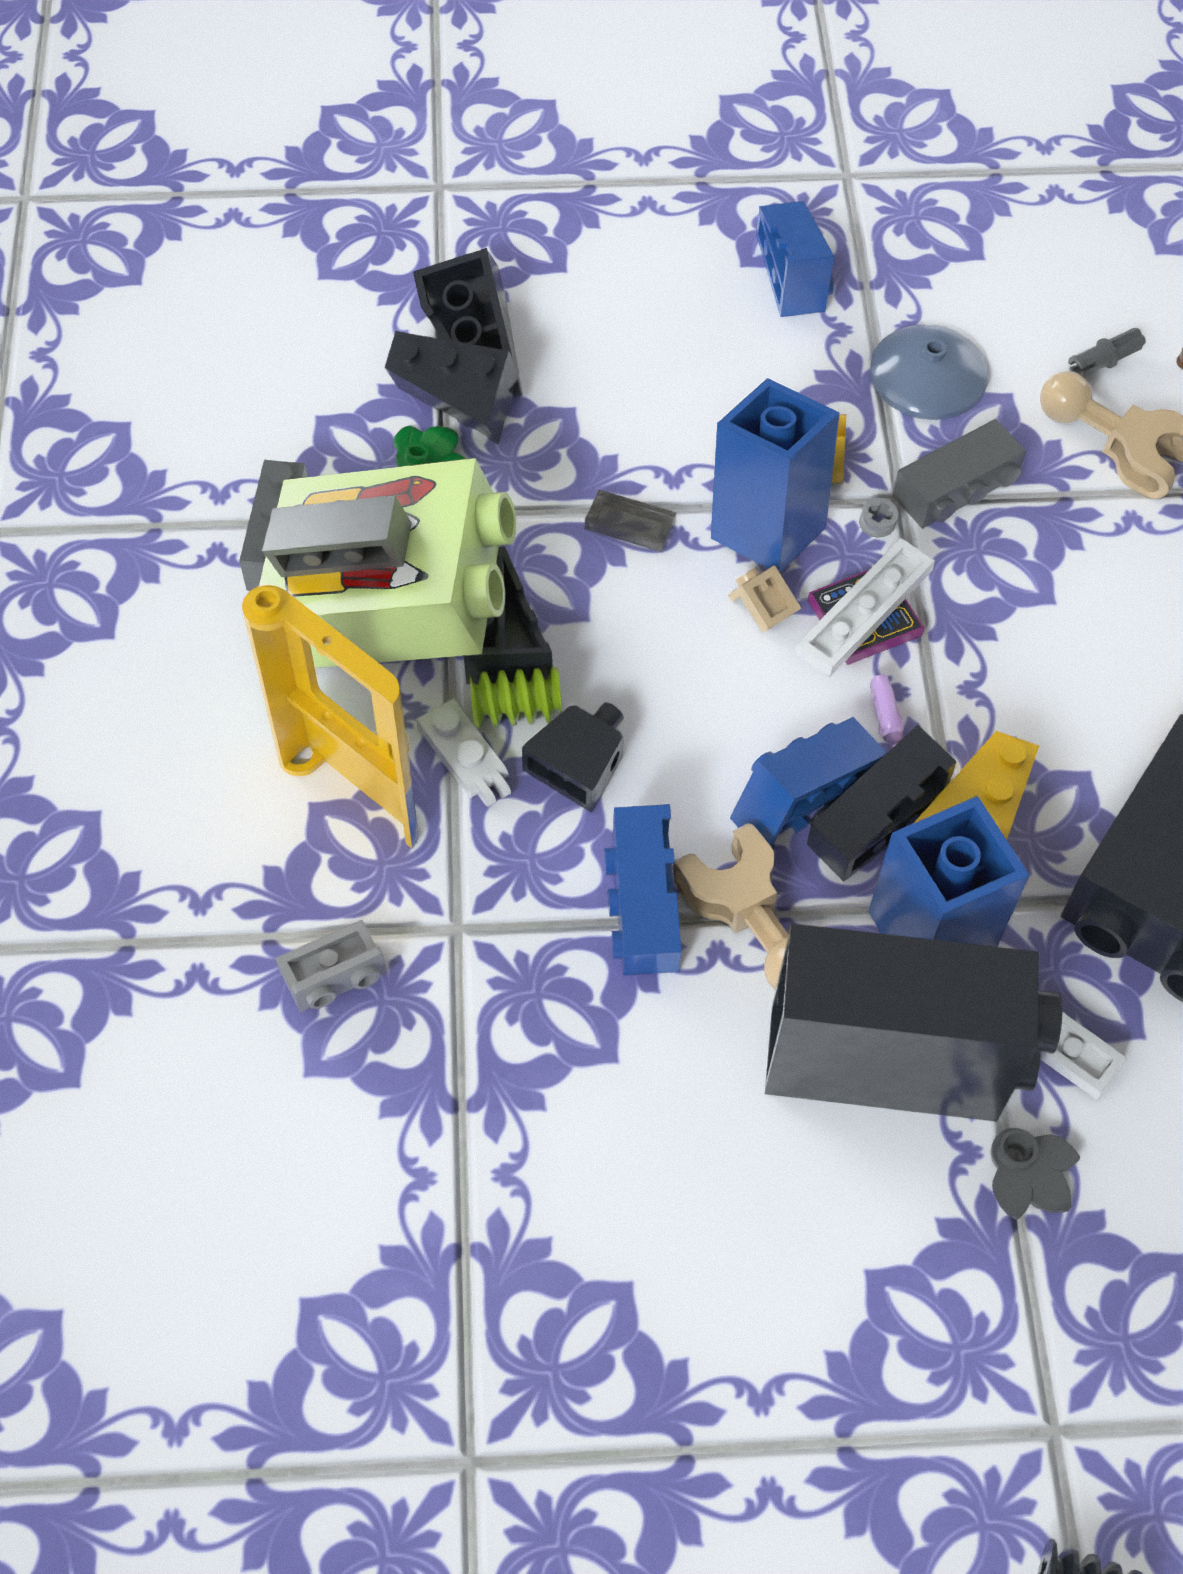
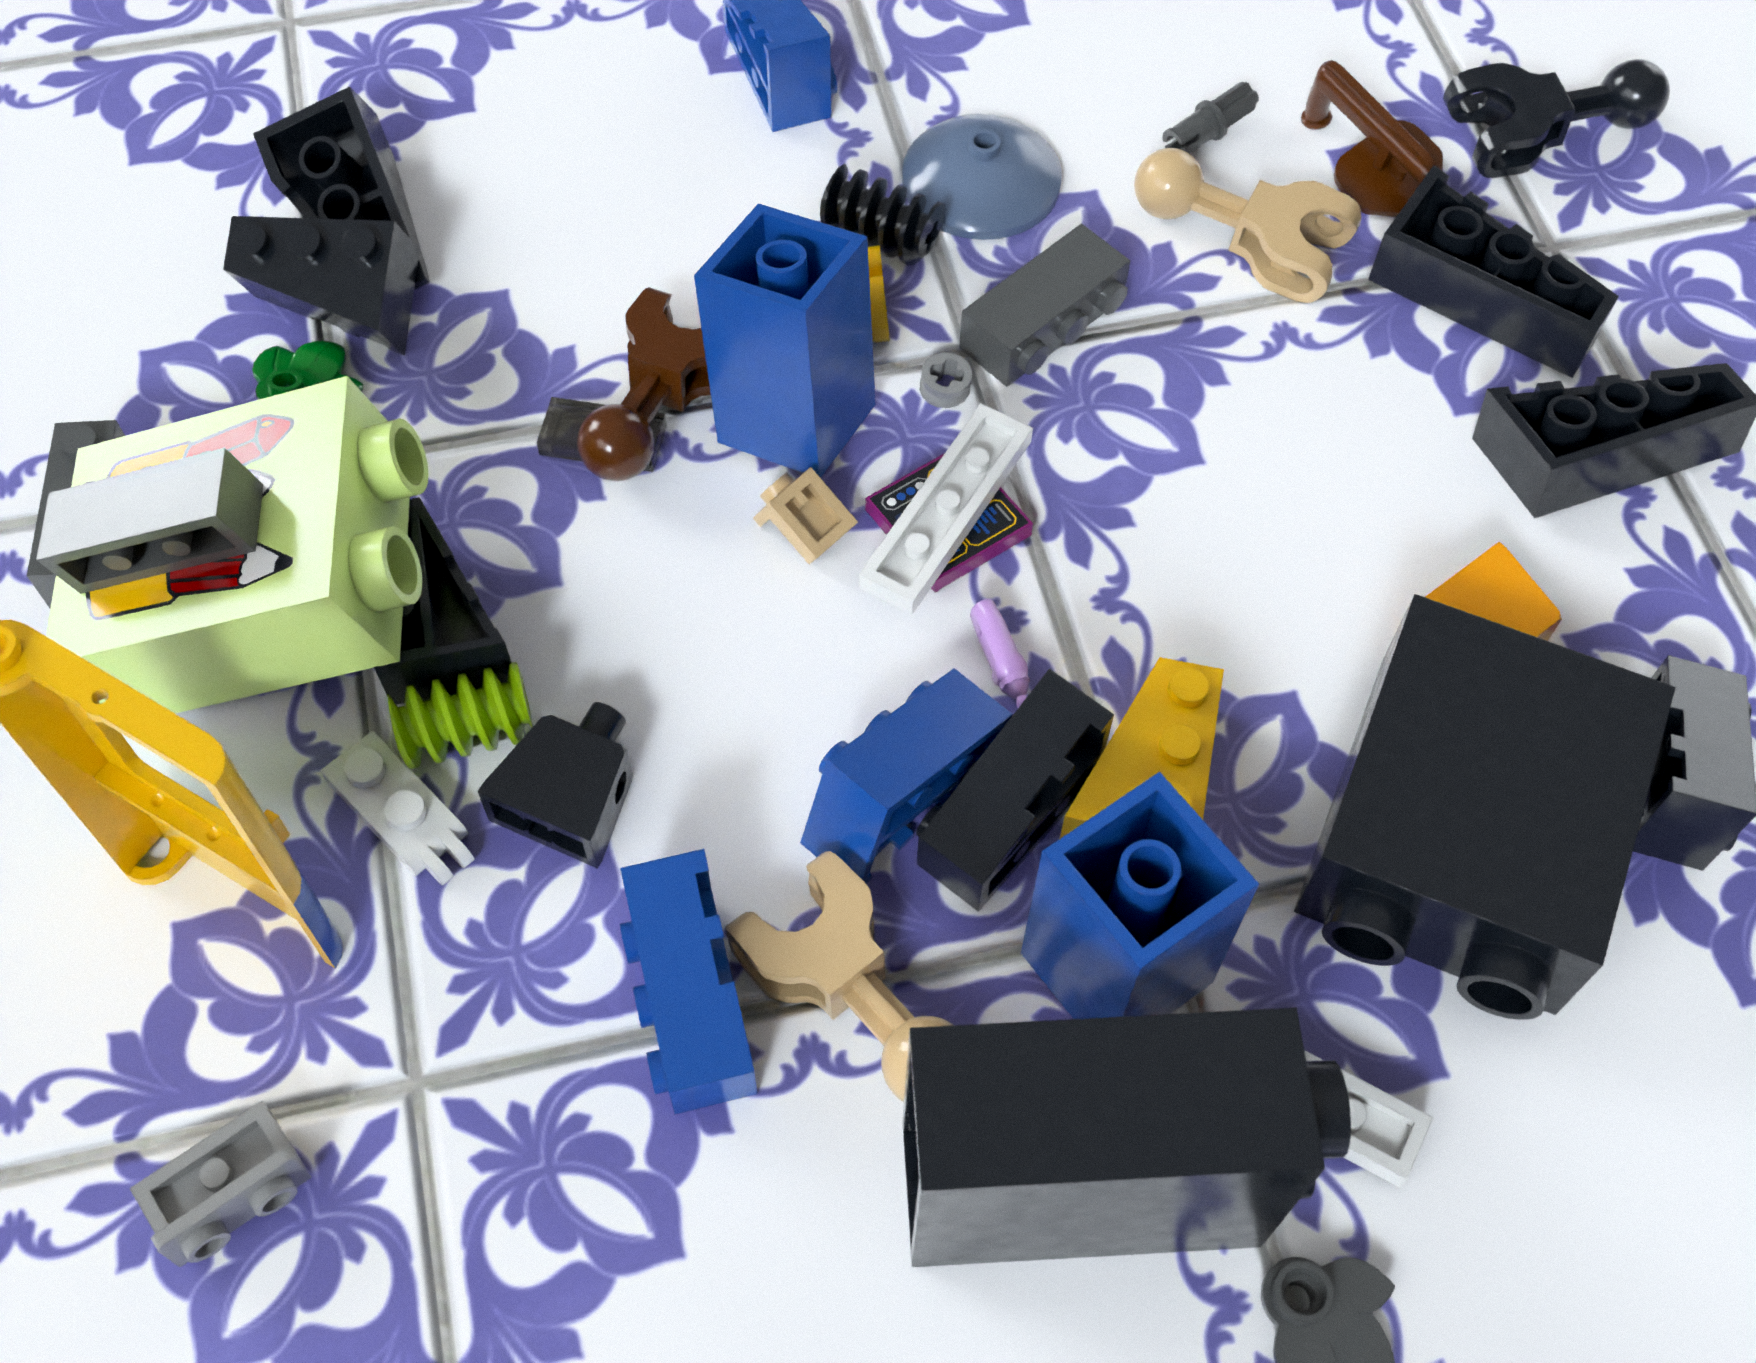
camera: 10 degrees left, 0 degrees up
(681, 482) = (664, 369): none -> reddish brown piece
(849, 394) = (884, 220): none -> black piece

